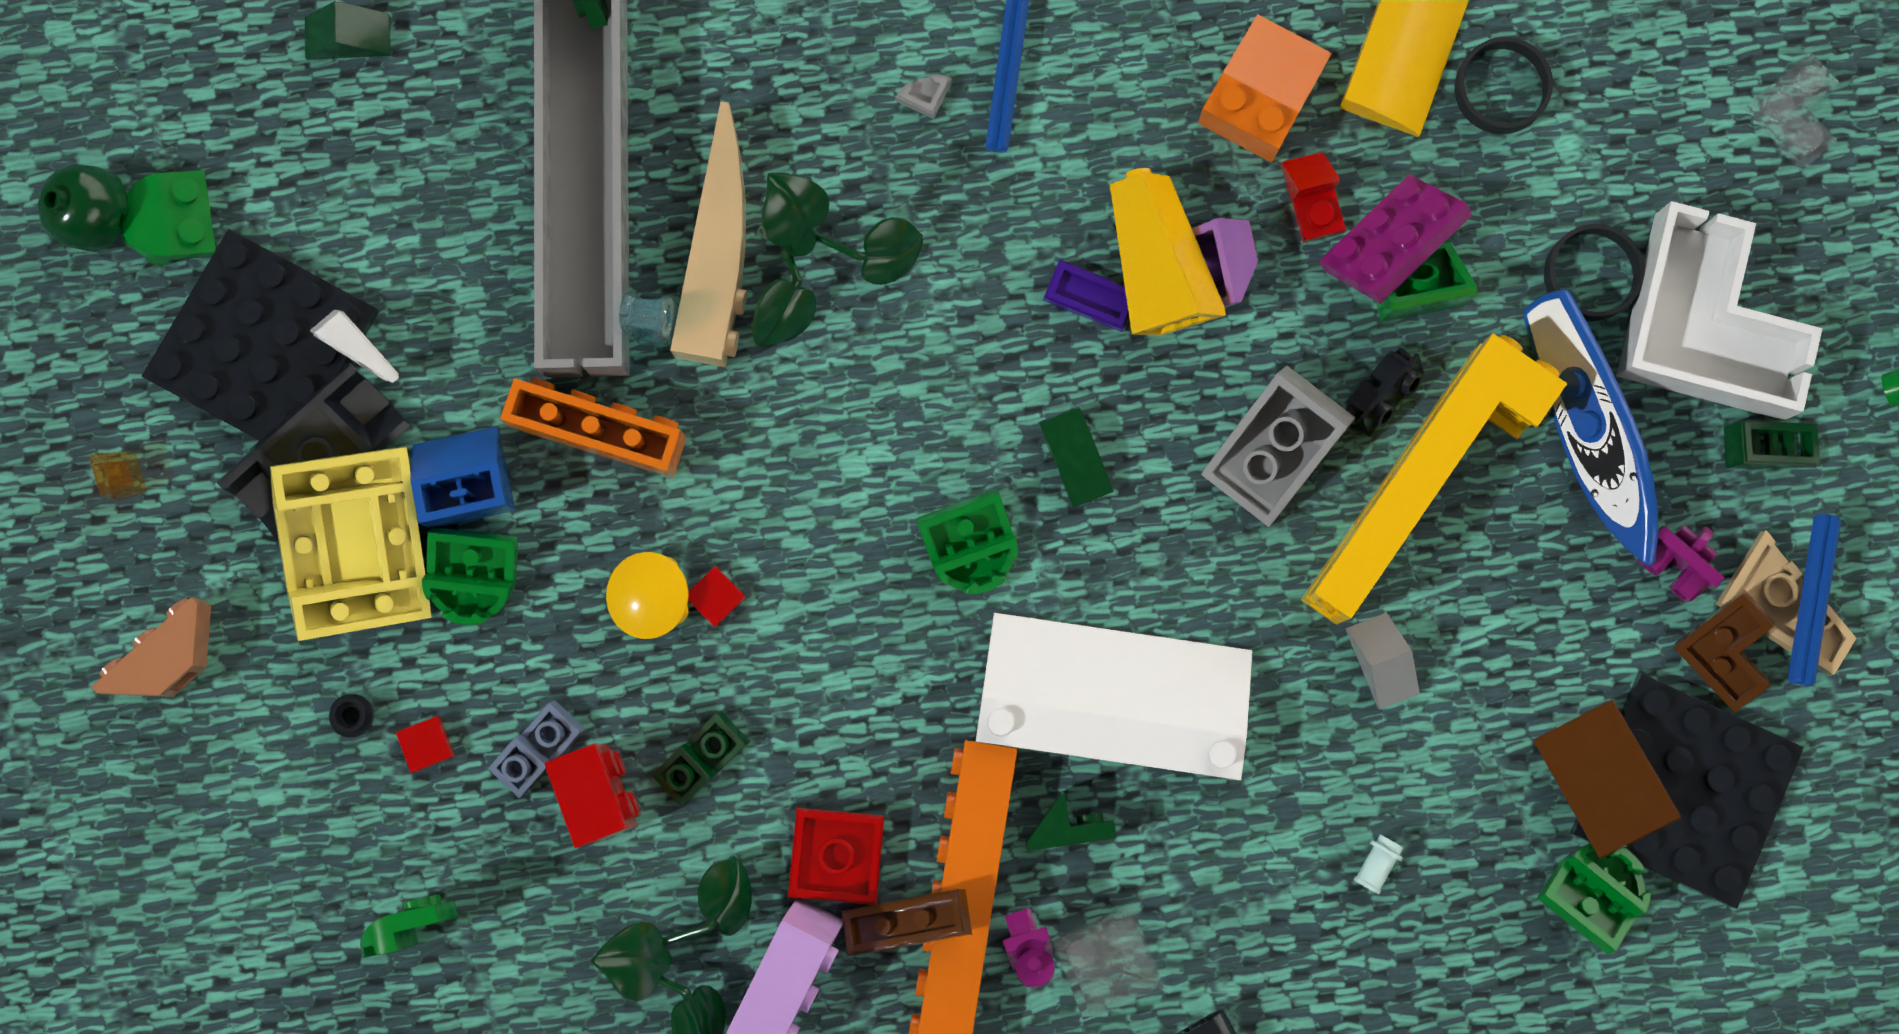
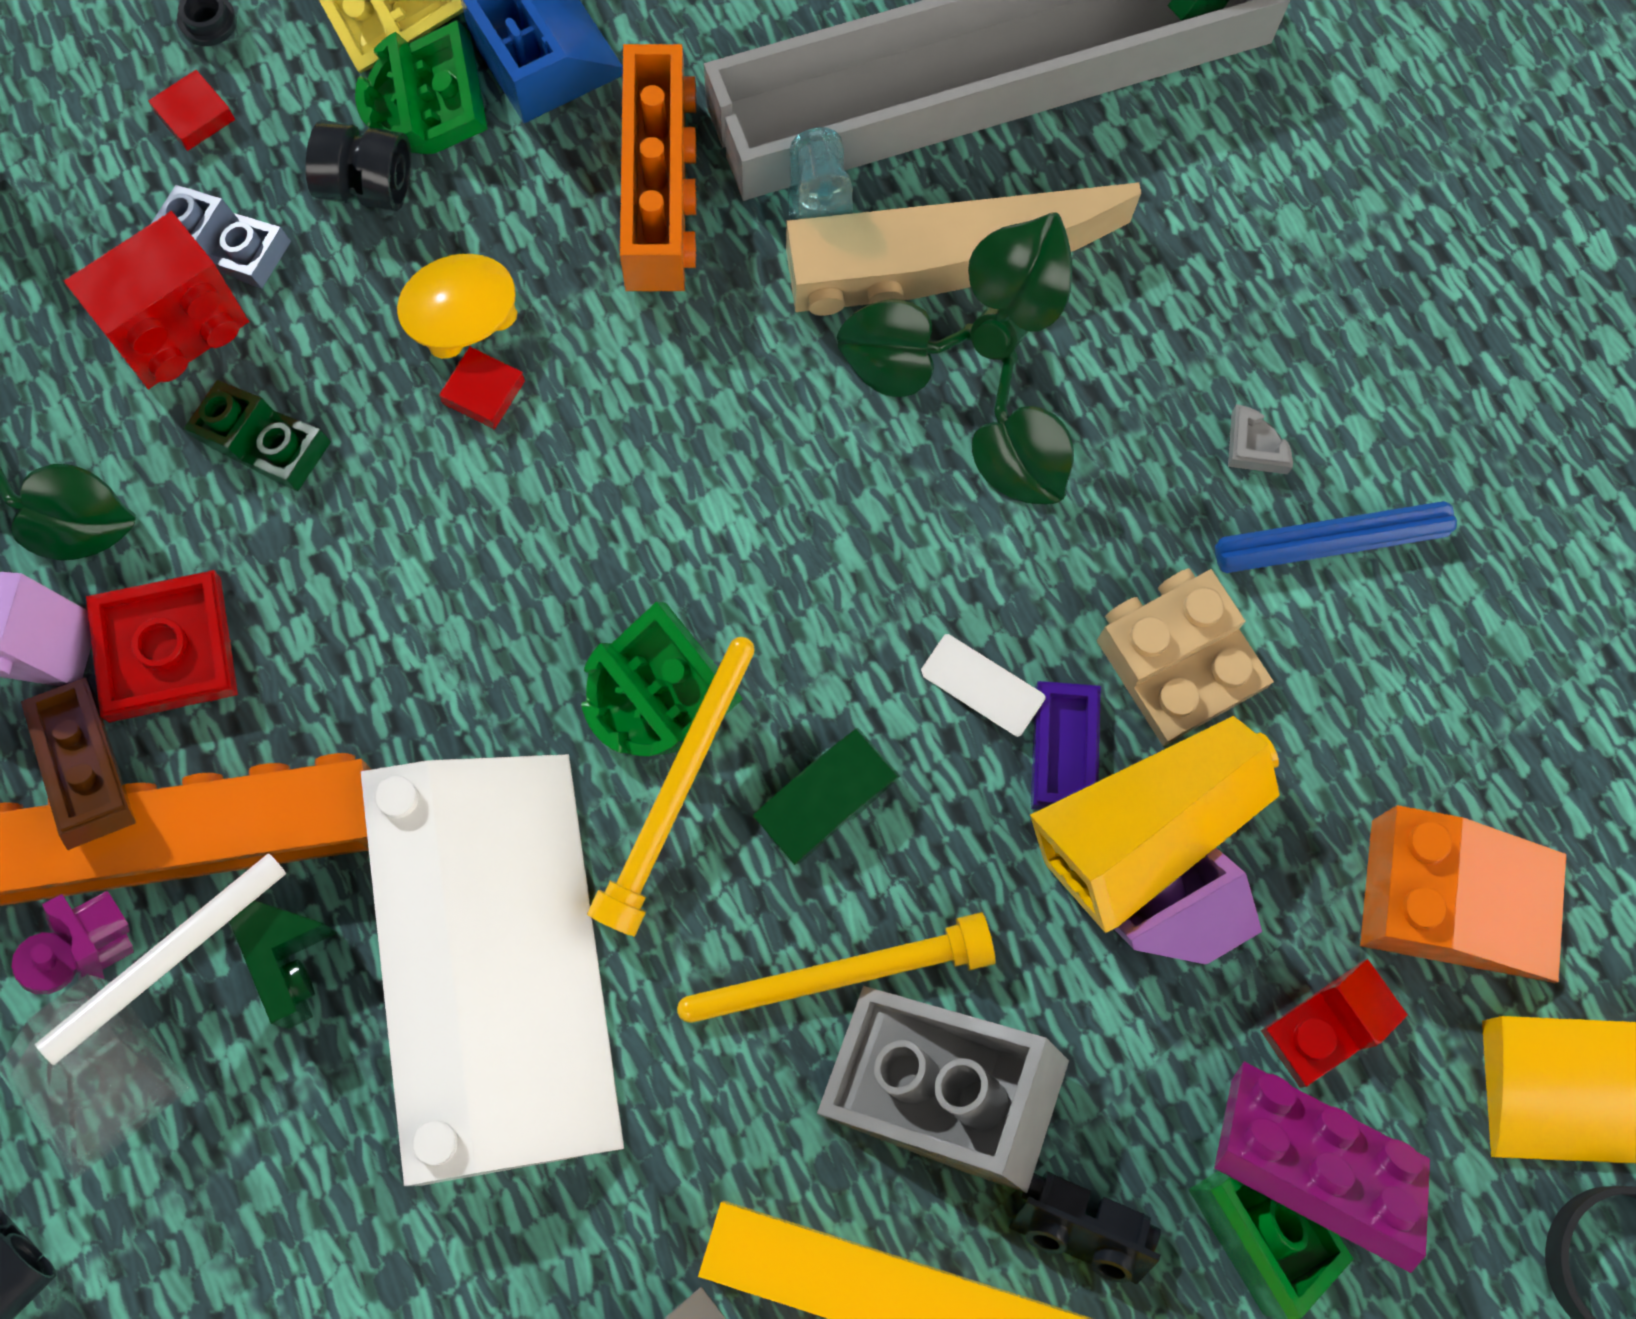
camera: 65 degrees right, 10 degrees down
(520, 634) = (376, 158): none -> black wheel
(1033, 333) = (982, 685): none -> white sticker
(1056, 199) = (1183, 654): none -> tan plate
(1059, 890) = (159, 960): none -> white bar
(1104, 606) = (622, 900): none -> yellow piece
(1196, 404) = (964, 943): none -> yellow piece

